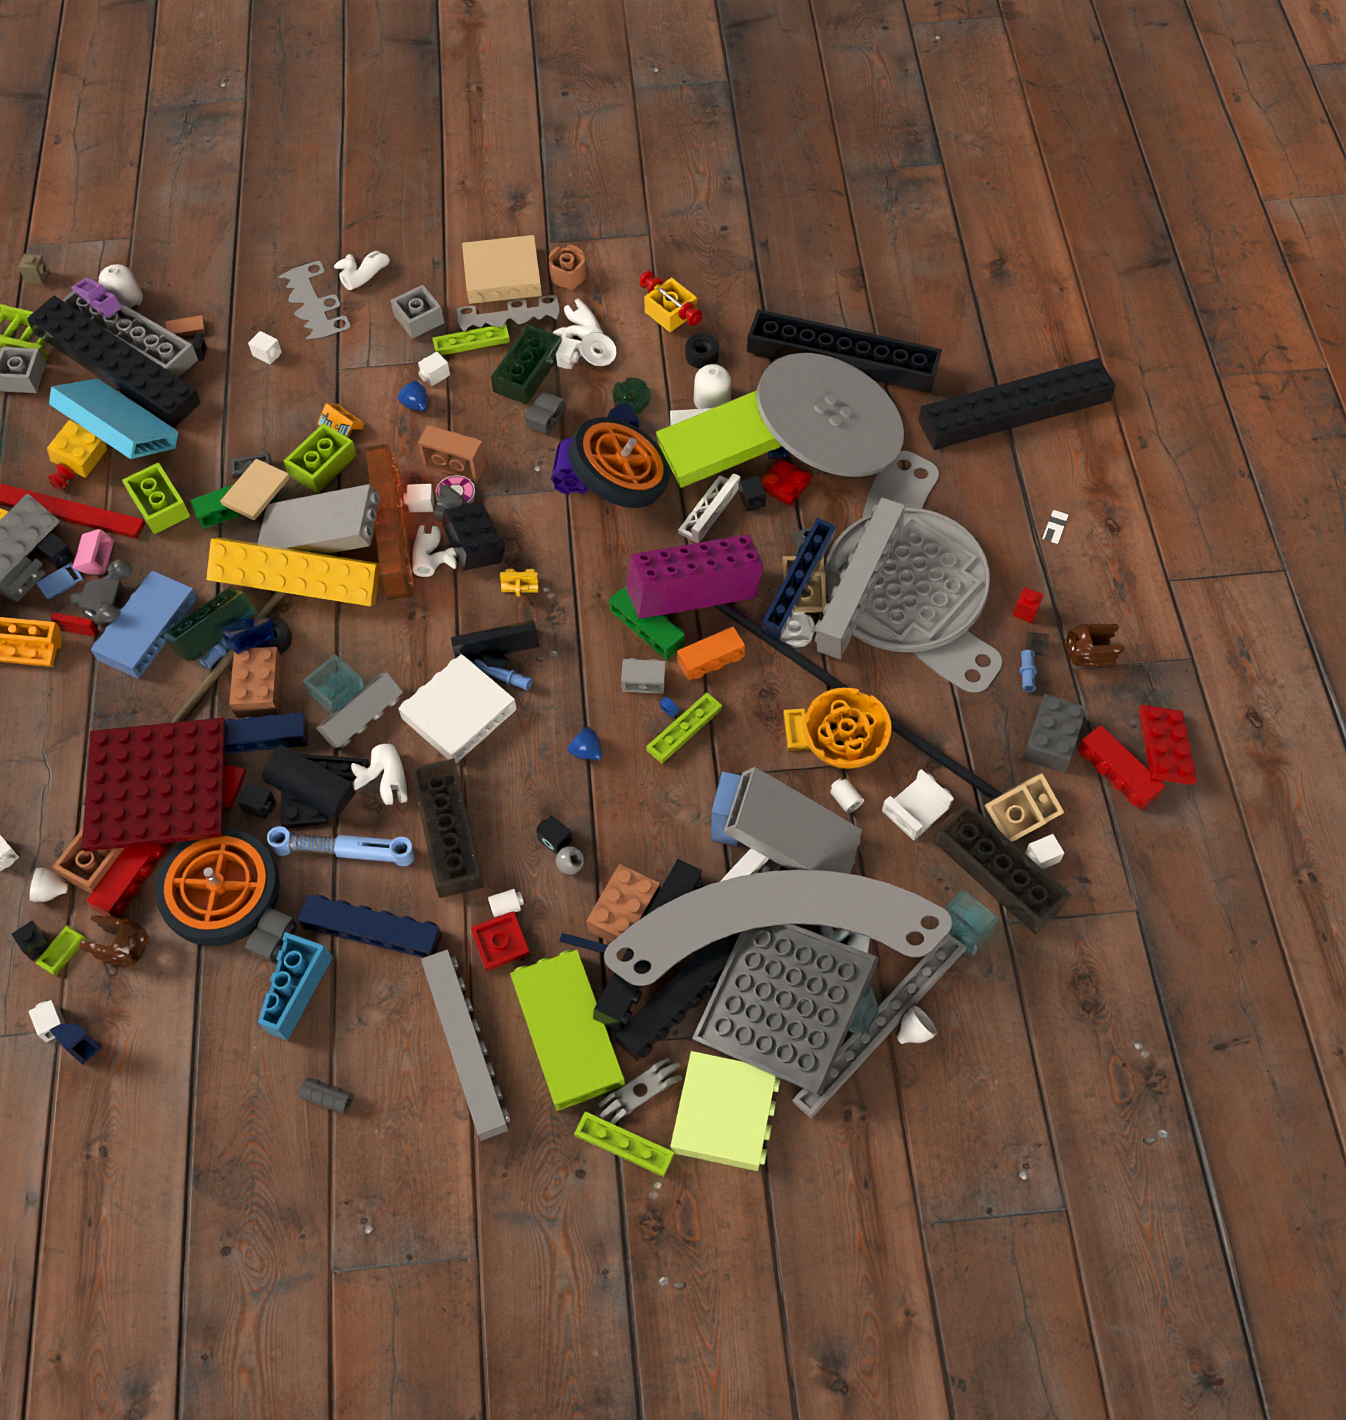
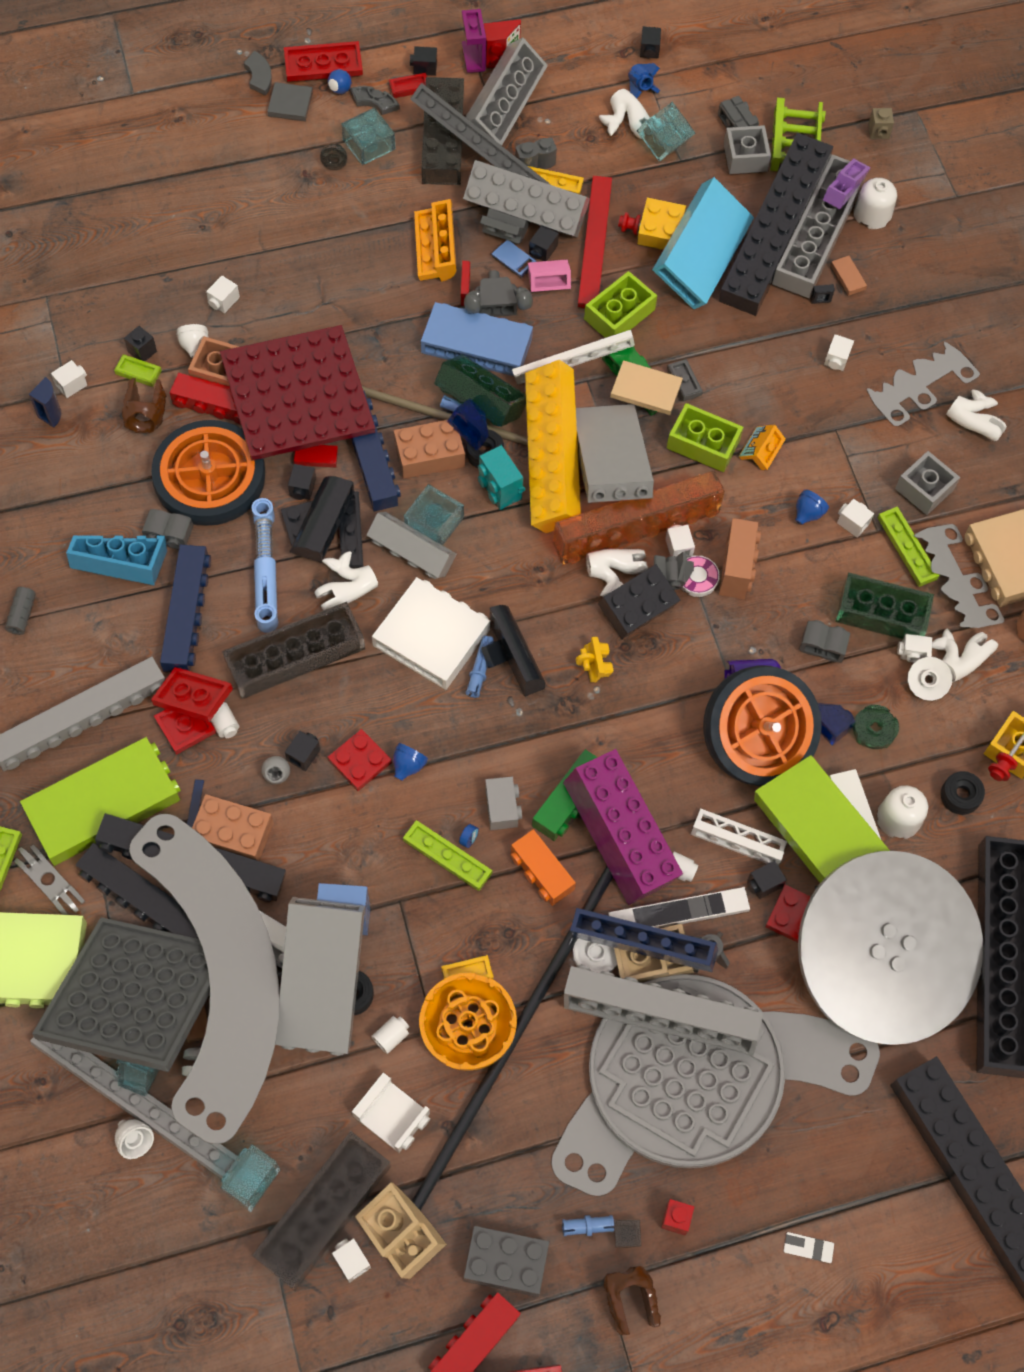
camera: 75 degrees right, 5 degrees up
(200, 552) = (581, 354): none -> white tile
(311, 622) = (500, 477): none -> teal brick
(473, 924) = (192, 694): none -> red plate
(572, 789) = (359, 760): none -> red plate
(767, 549) = (687, 909): none -> tile

